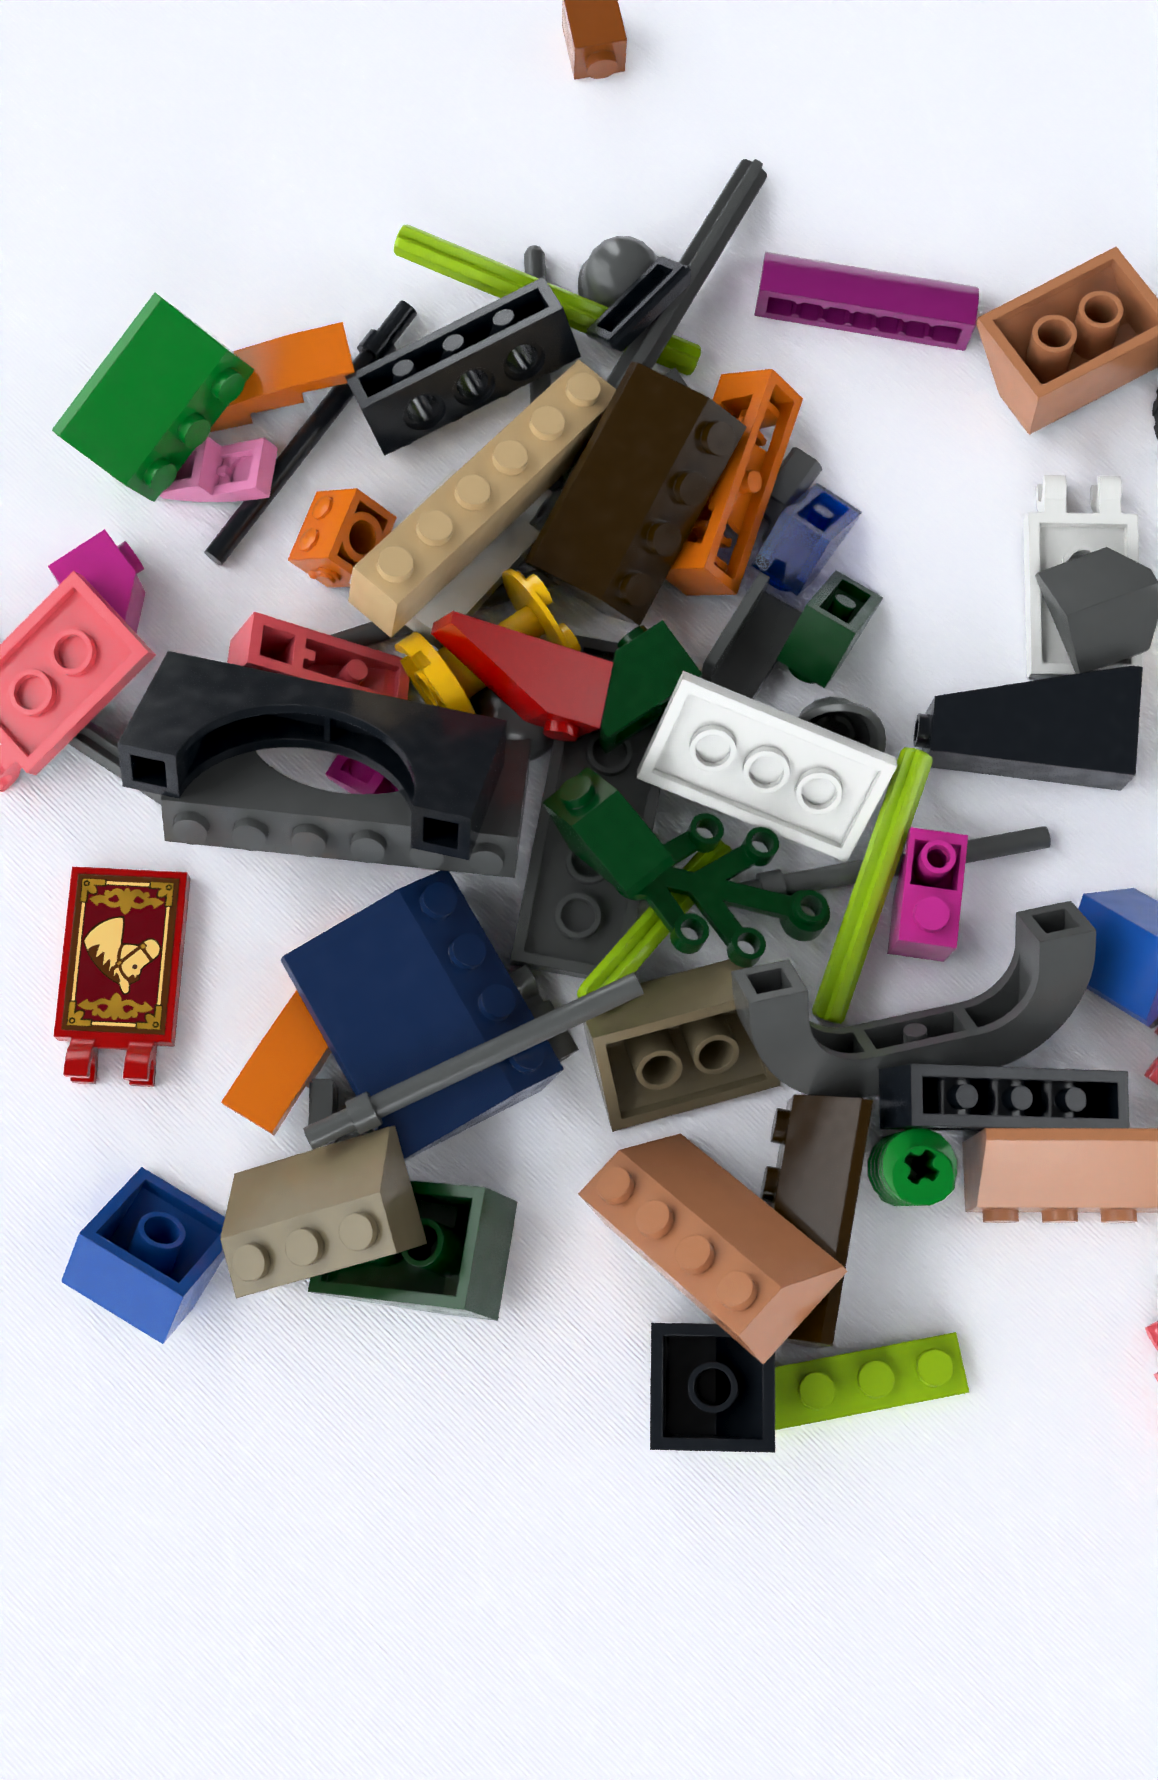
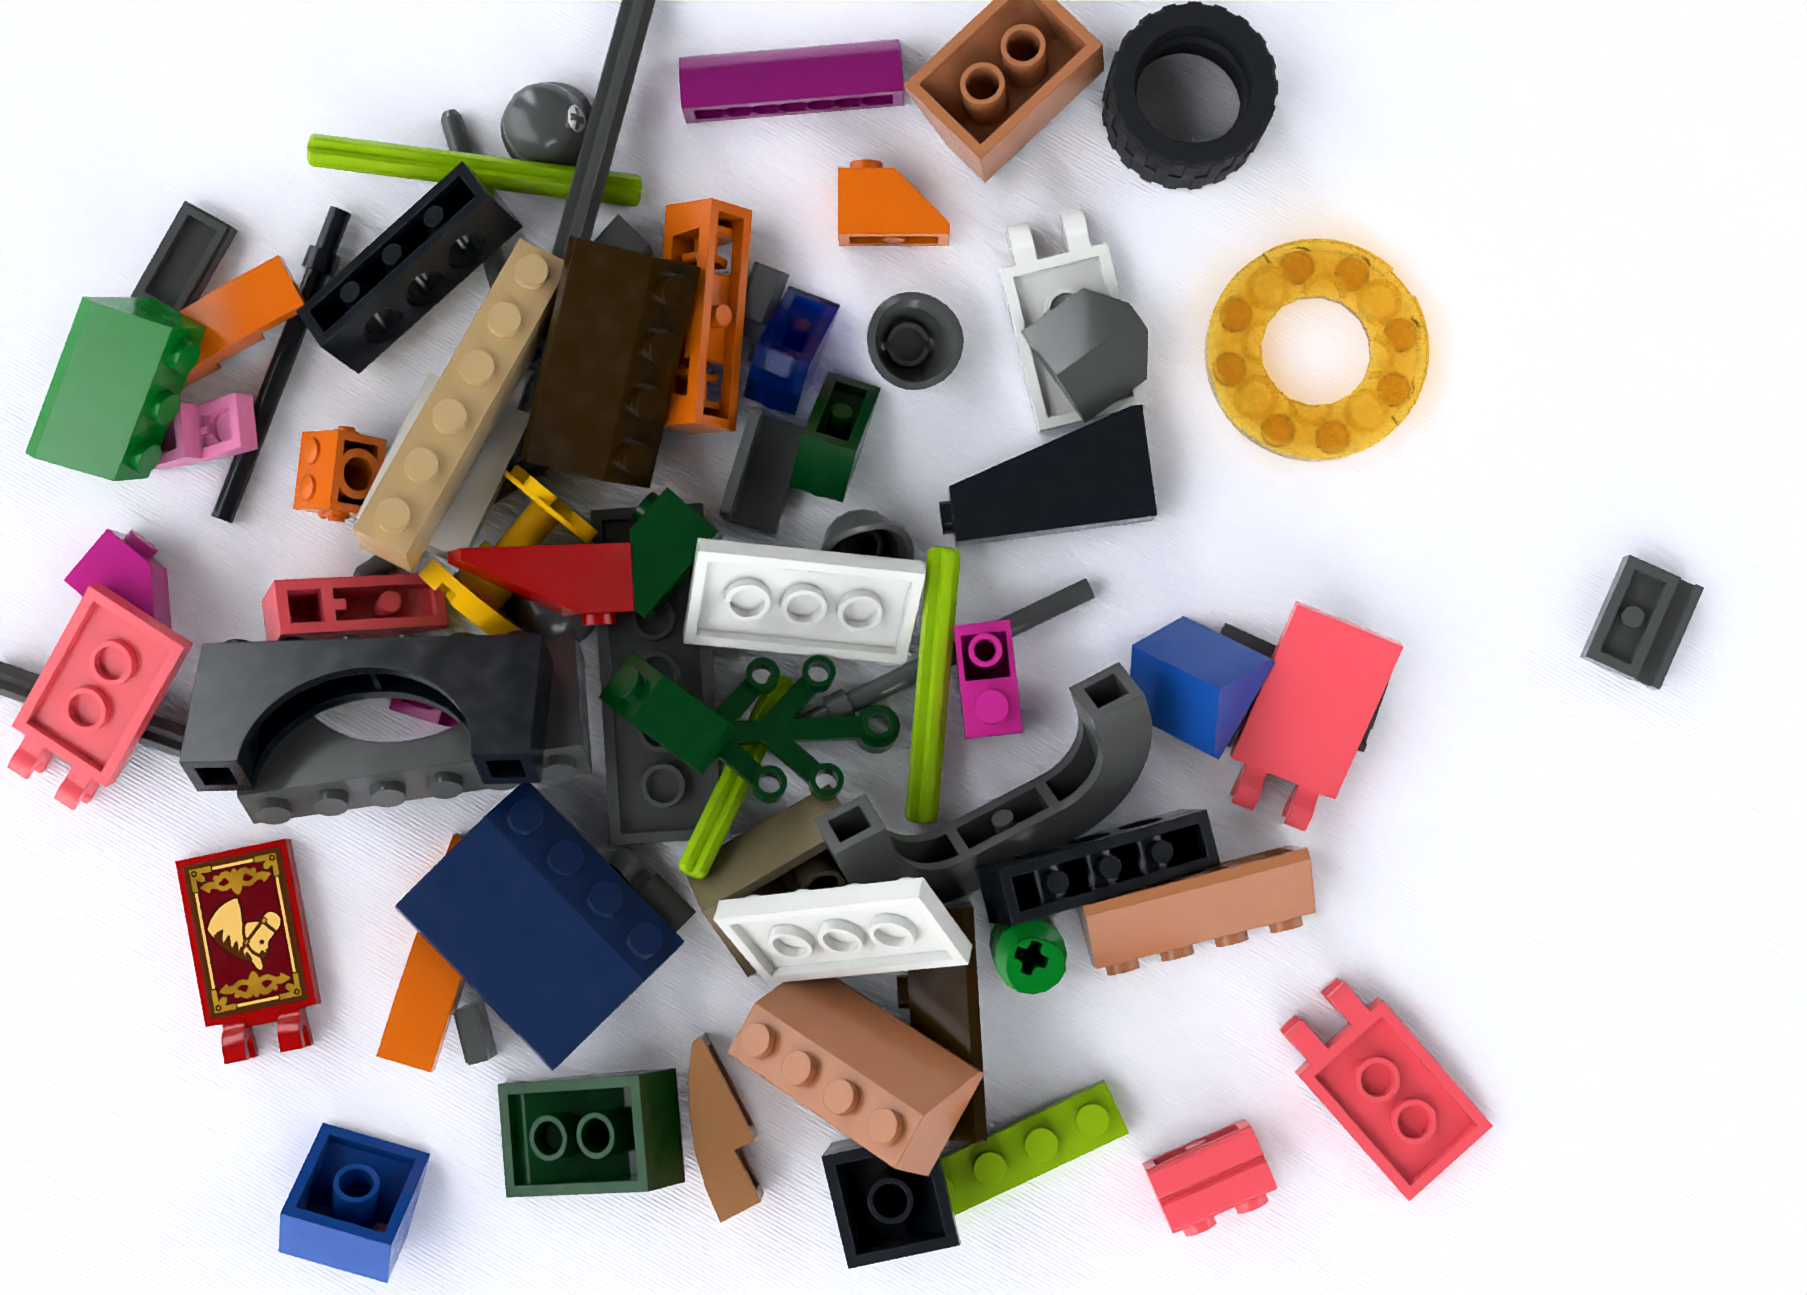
camera: 10 degrees left, 10 degrees up
(253, 310) = (185, 258): none -> dark grey tile
(320, 1213) = (495, 1134): dark tan slope -> none
(366, 1111) = (512, 1032): dark grey bar -> none
(546, 1277) = (719, 1131): none -> medium nougat slope
(640, 304) = (566, 160): black tile -> none
(736, 1091) = (844, 931): none -> white plate
(930, 434) = (885, 209): none -> orange slope
(931, 554) = (914, 340): none -> dark grey helmet
(1045, 1461) = (1210, 1178): none -> coral brick

